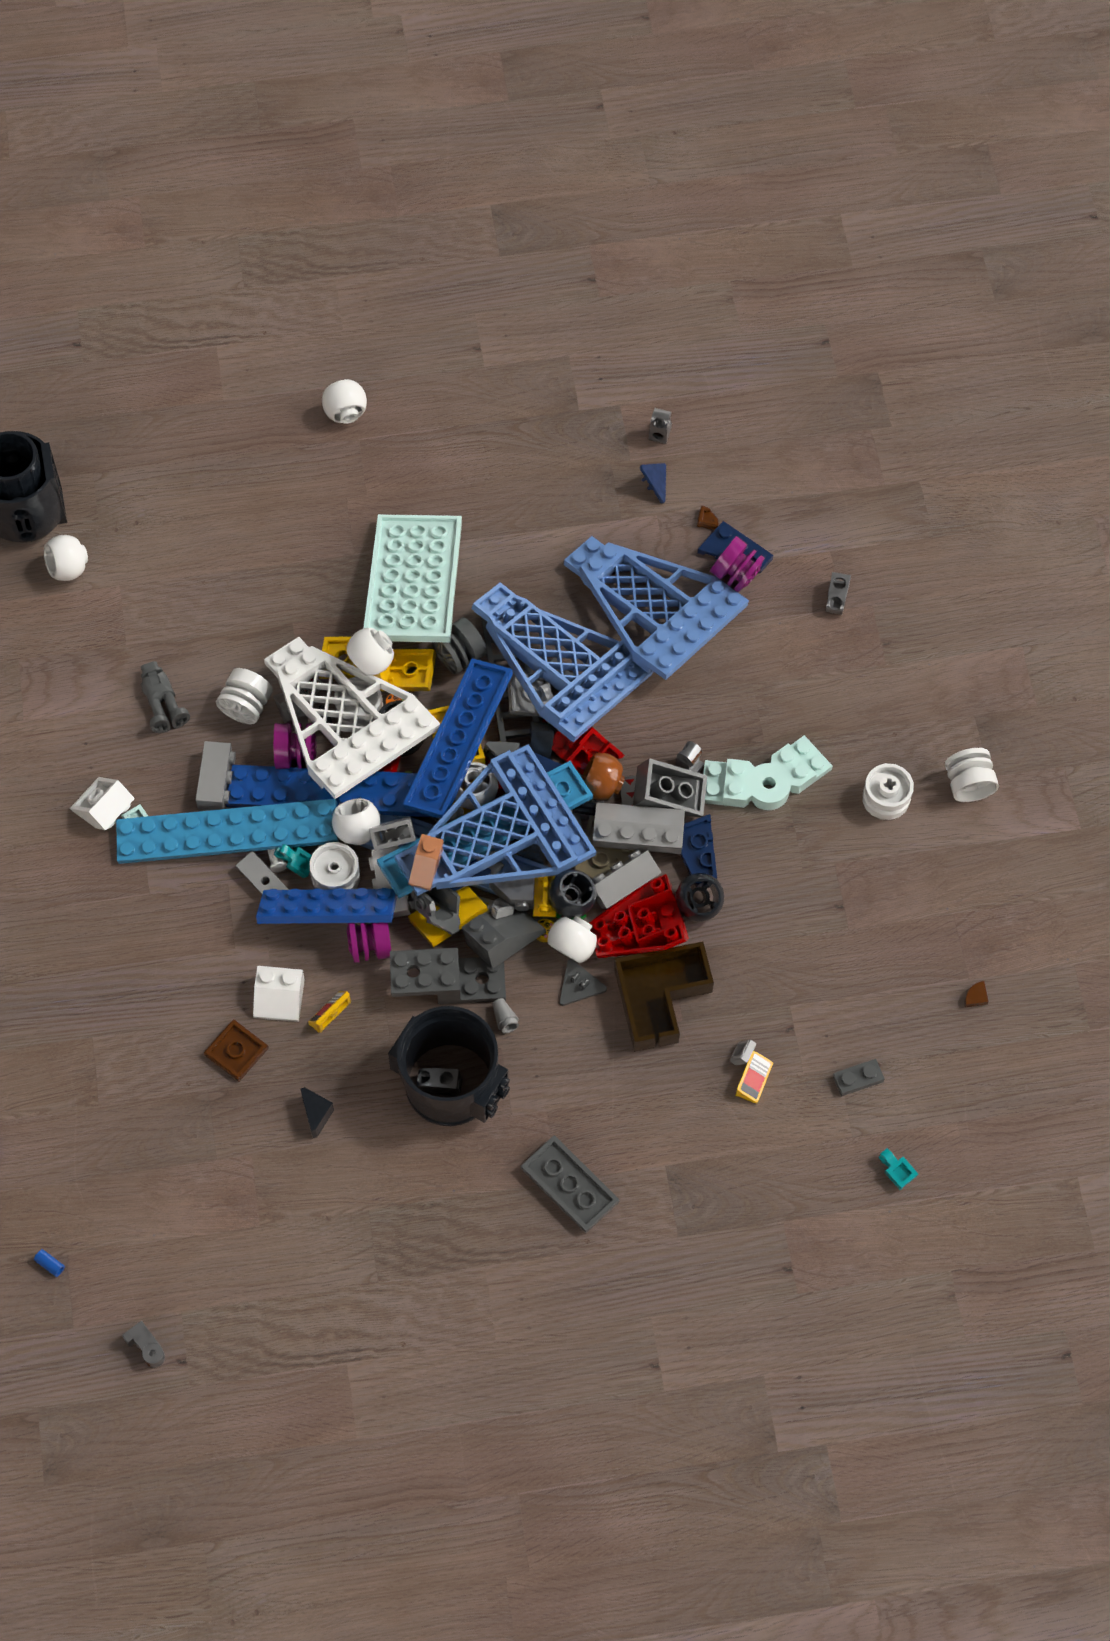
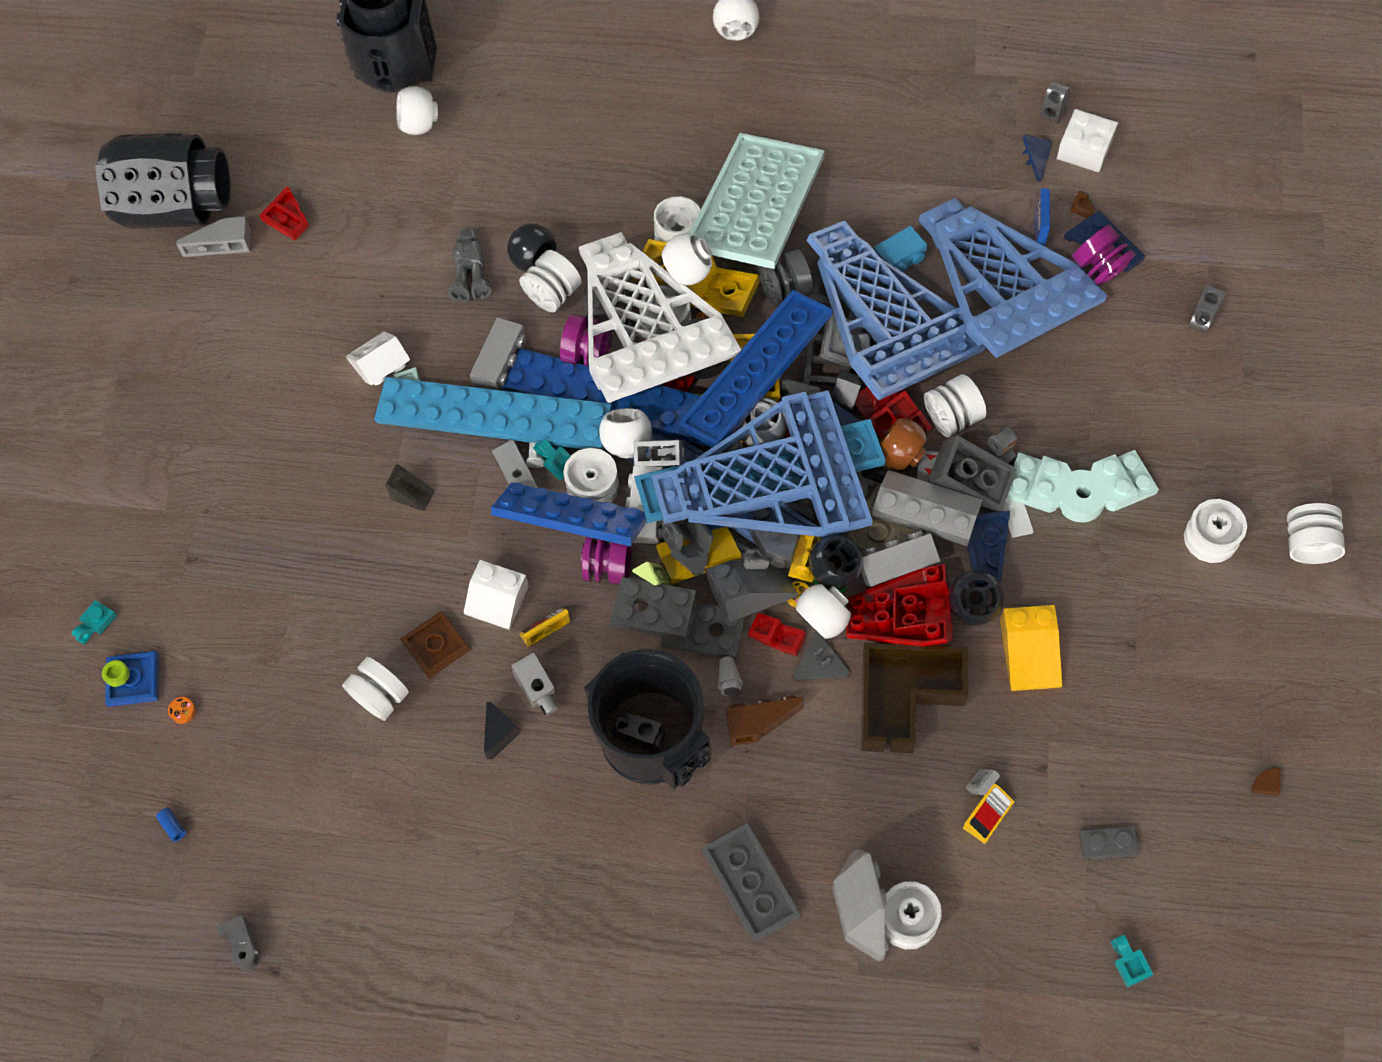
camera: 20 degrees right, 0 degrees up
(25, 1163) = (181, 710): none -> orange tile
(170, 918) = (408, 489): none -> clear smoke slope
(198, 1100) = (375, 688): none -> white wheel
(215, 666) = (529, 244): none -> black wheel
(333, 1054) = (531, 675): none -> light grey torso
(344, 614) = (674, 217): none -> white wheel
(415, 941) = (653, 573): none -> yellowish green slope
(426, 862) = (681, 488): nougat slope -> none
(534, 970) = (777, 635): none -> red slope
(537, 1048) = (753, 722): none -> reddish brown slope
(556, 596) = (902, 249): none -> dark azure brick
(640, 731) = (955, 405): none -> white wheel
(669, 1176) = (862, 904): none -> light grey wedge
(675, 540) = (1042, 217): none -> blue tile
(697, 456) = (1087, 140): none -> white brick
(698, 1172) = (922, 904): none -> white wheel
(719, 820) = (1019, 521): none -> white sticker
(756, 928) = (1031, 647): none -> yellow slope

